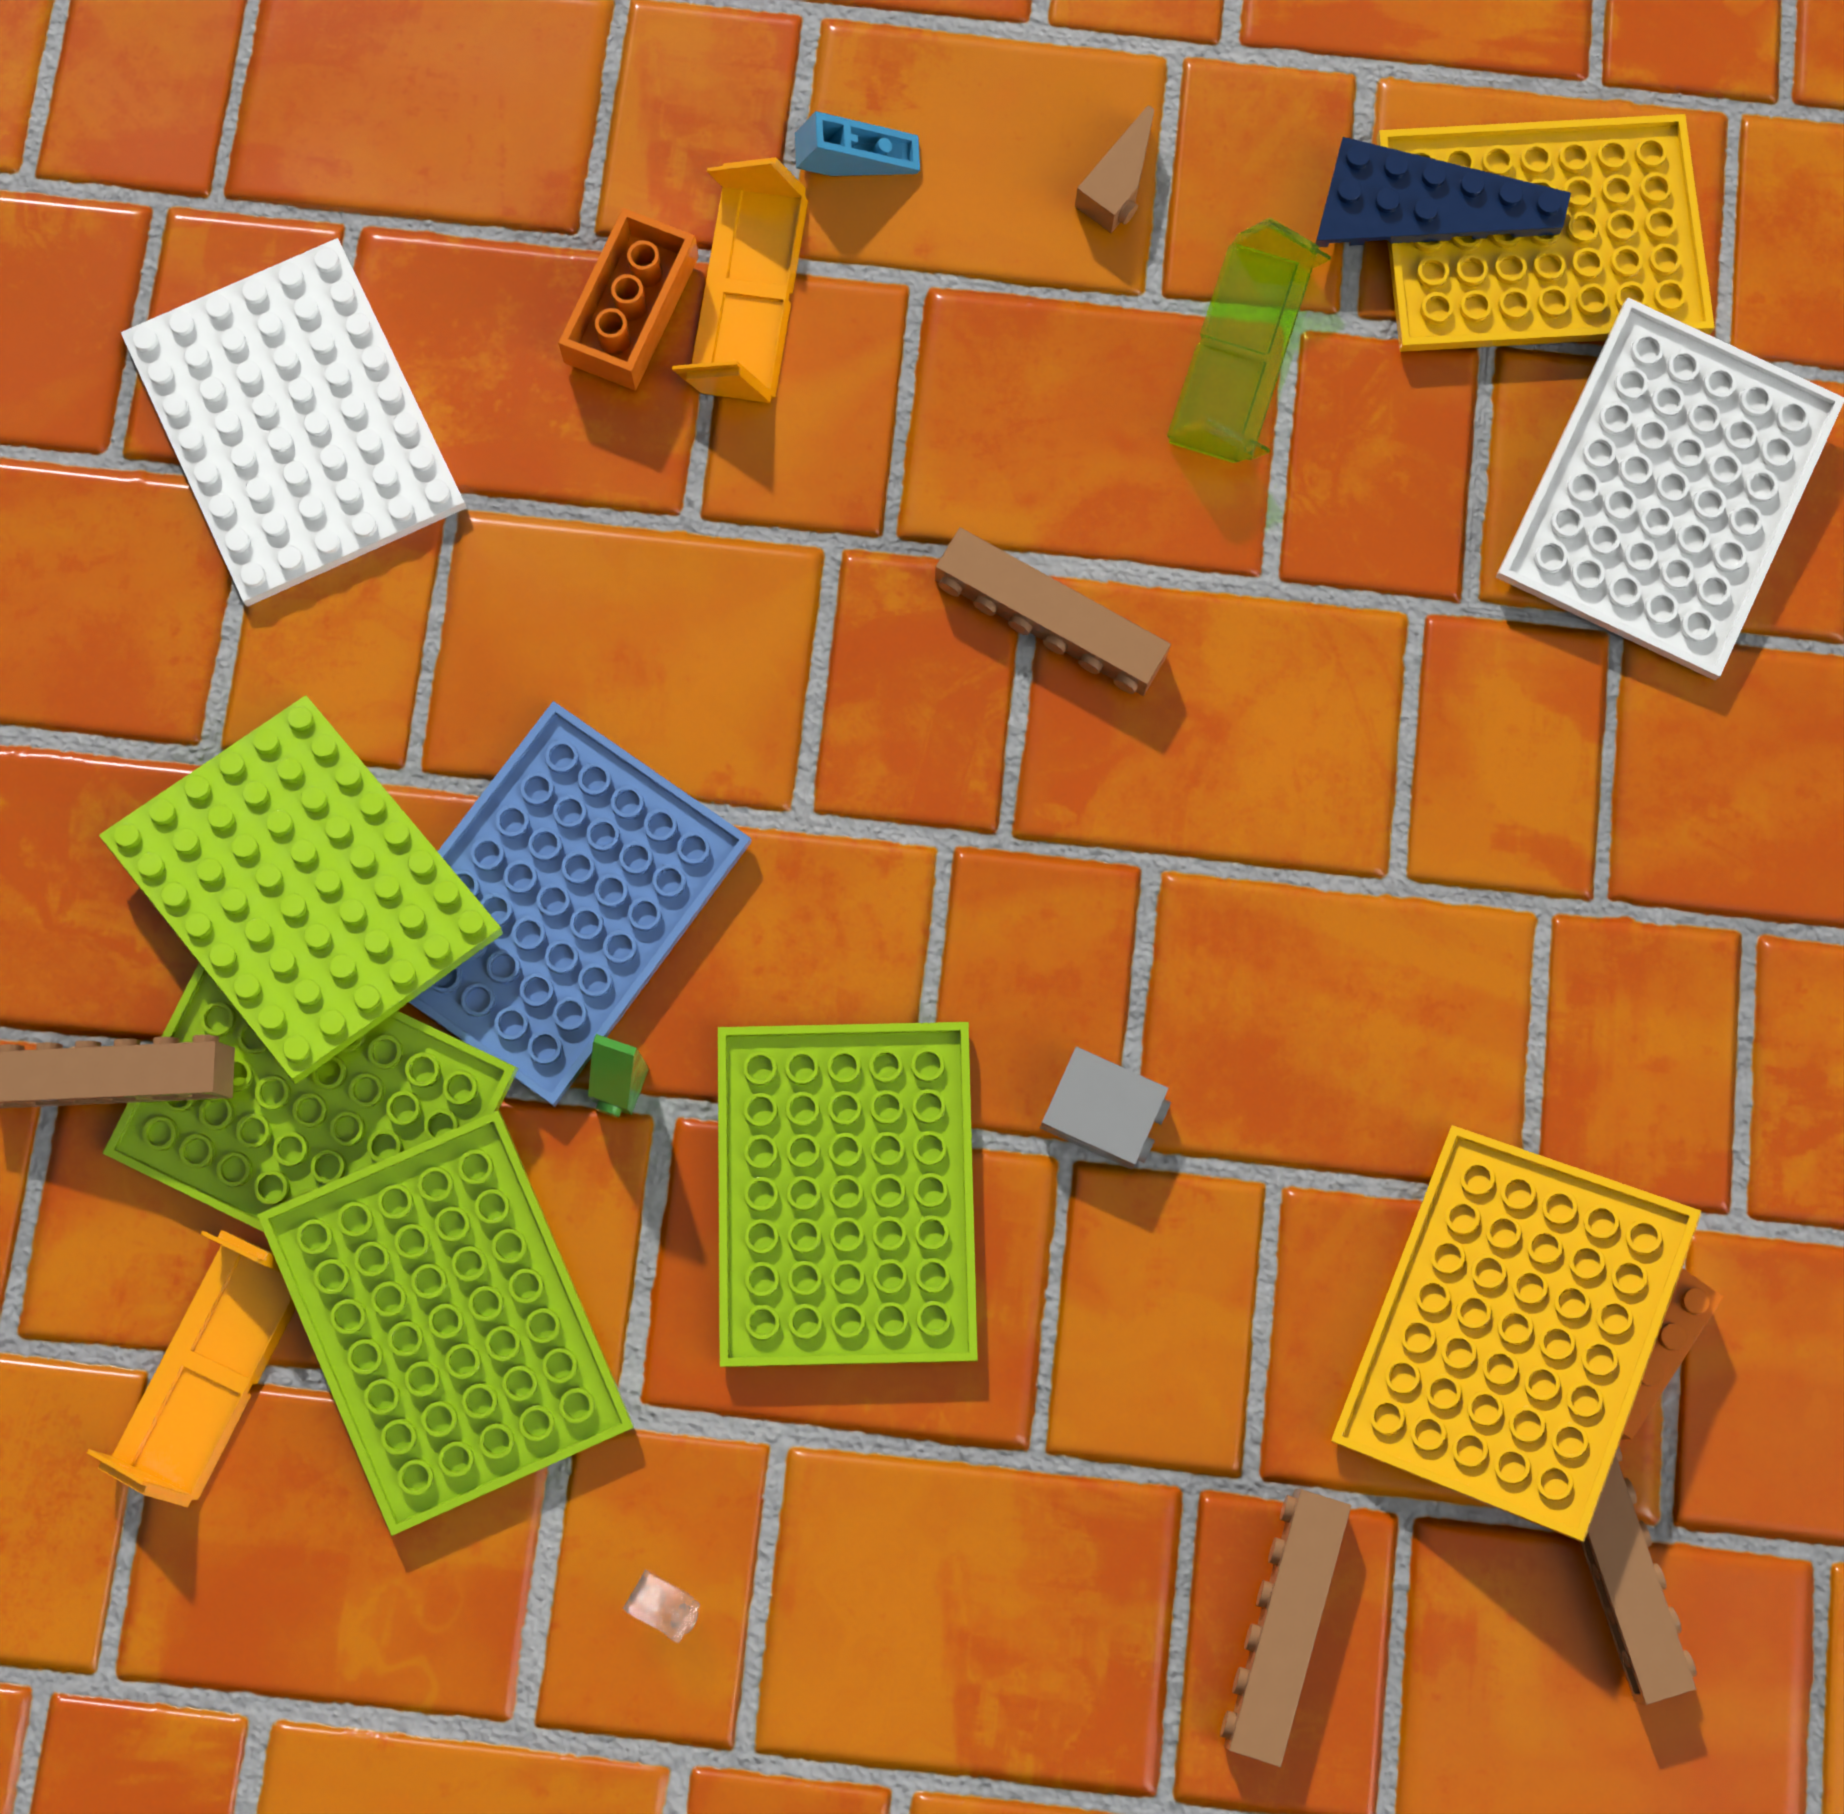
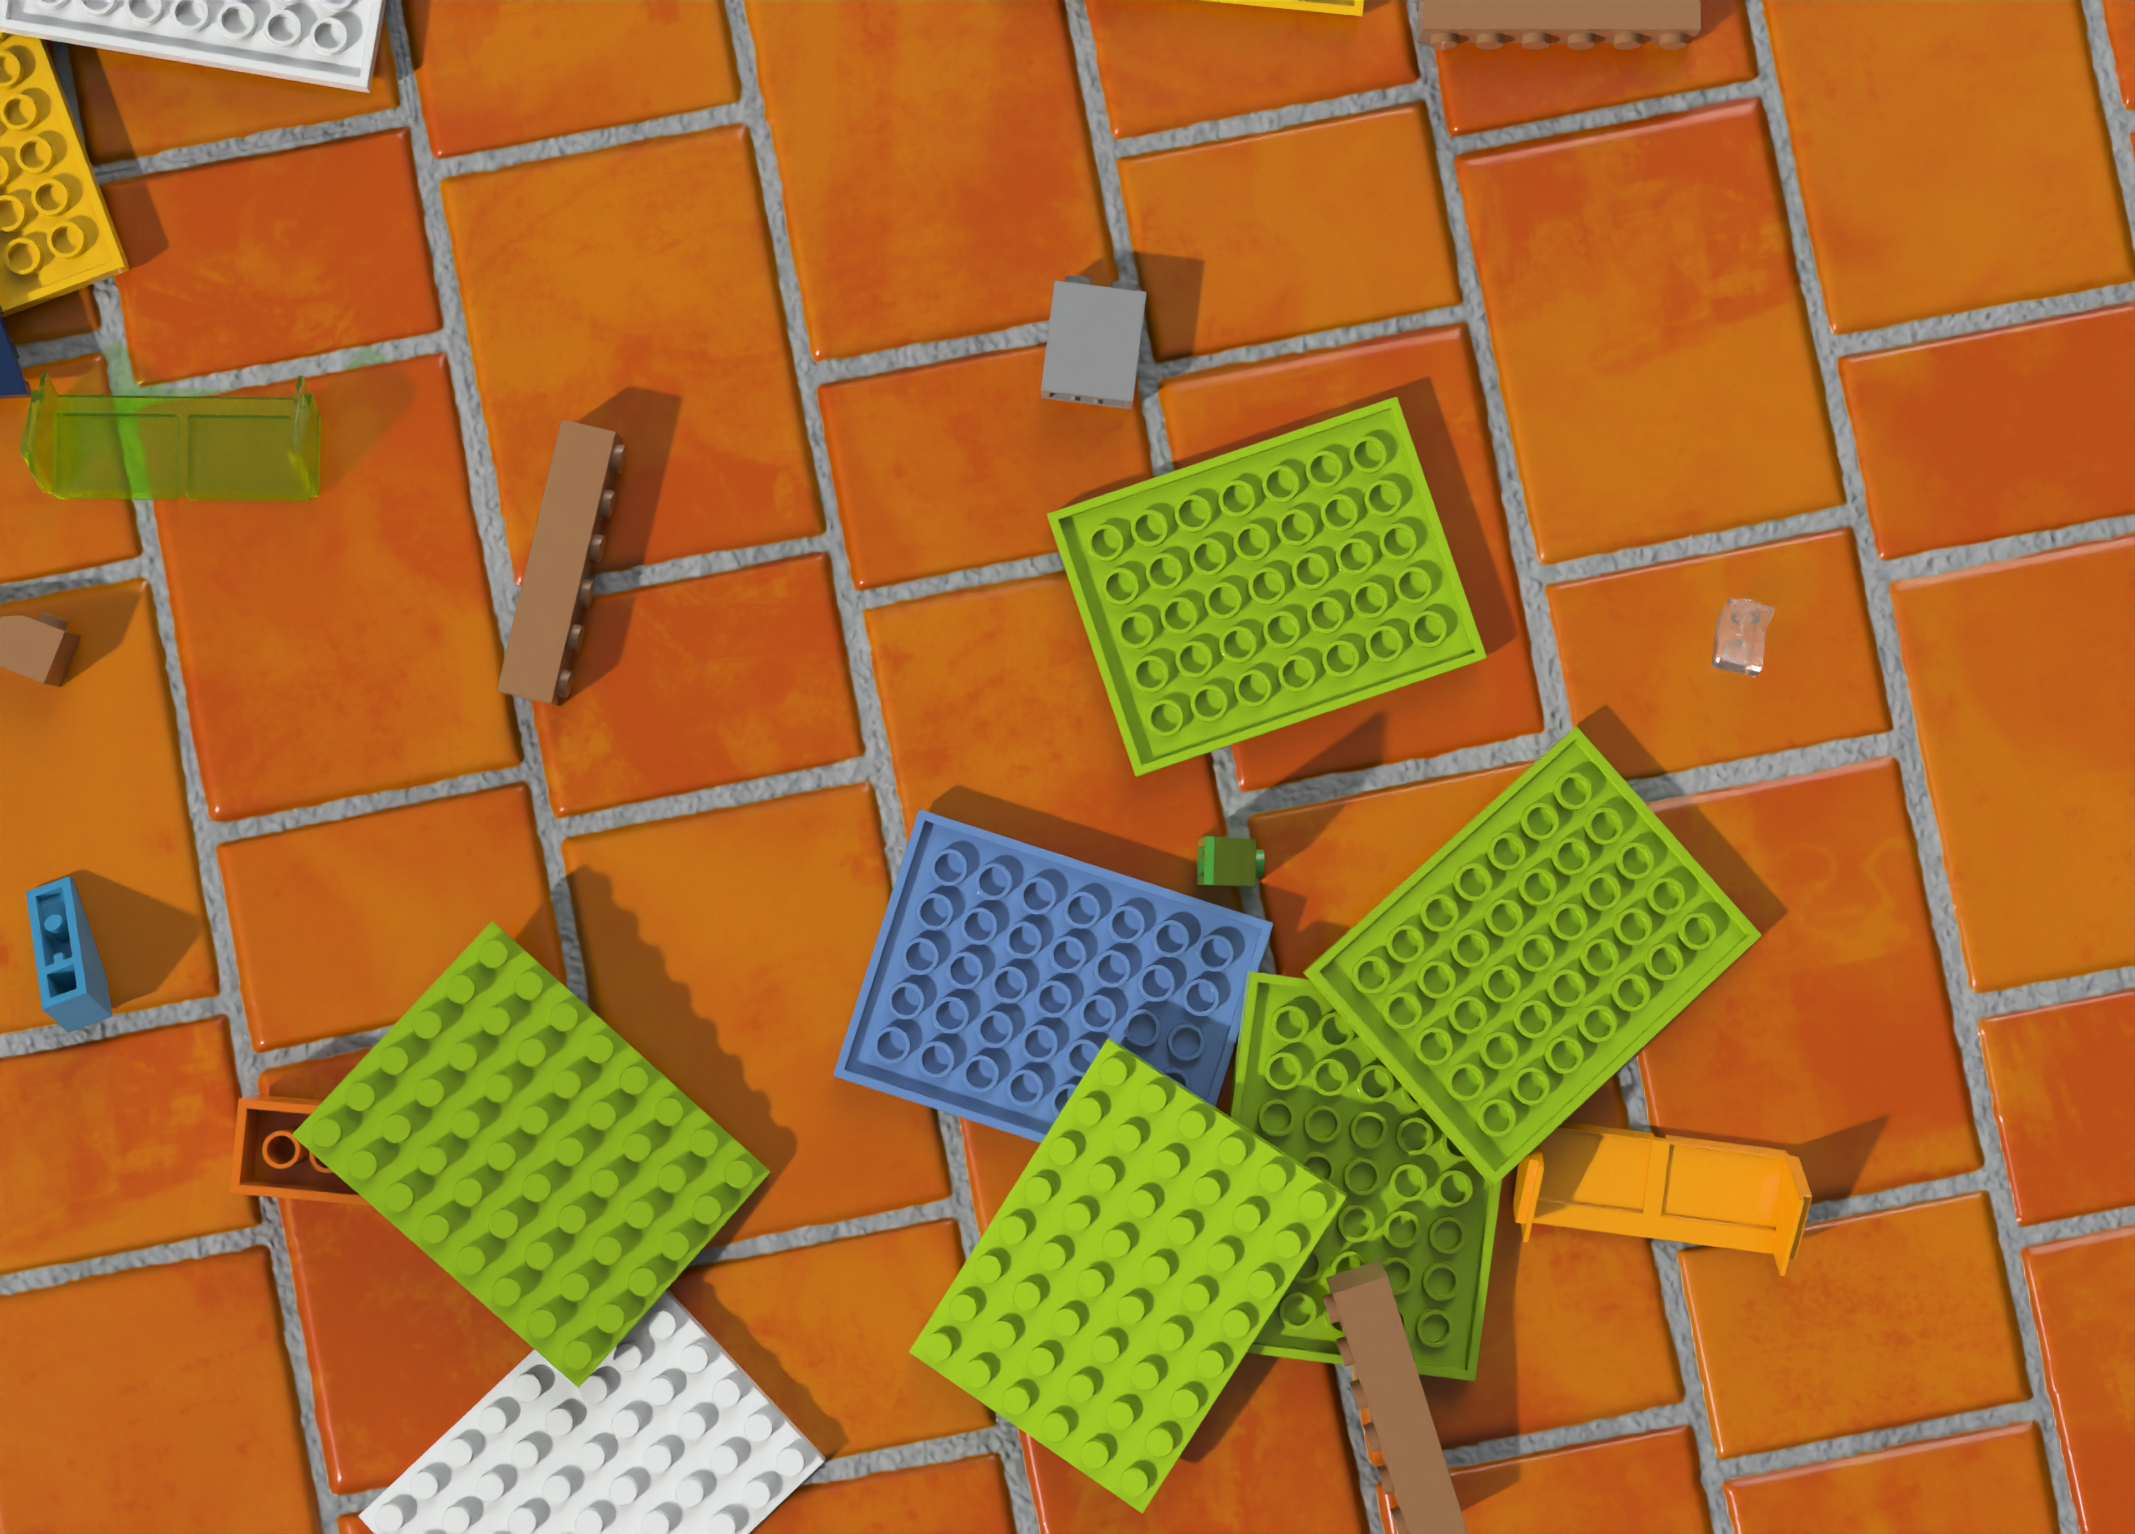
camera: 110 degrees left, 10 degrees up
(571, 445) = (532, 1153): none -> lime plate
(748, 281) = (261, 1025): light orange piece -> none

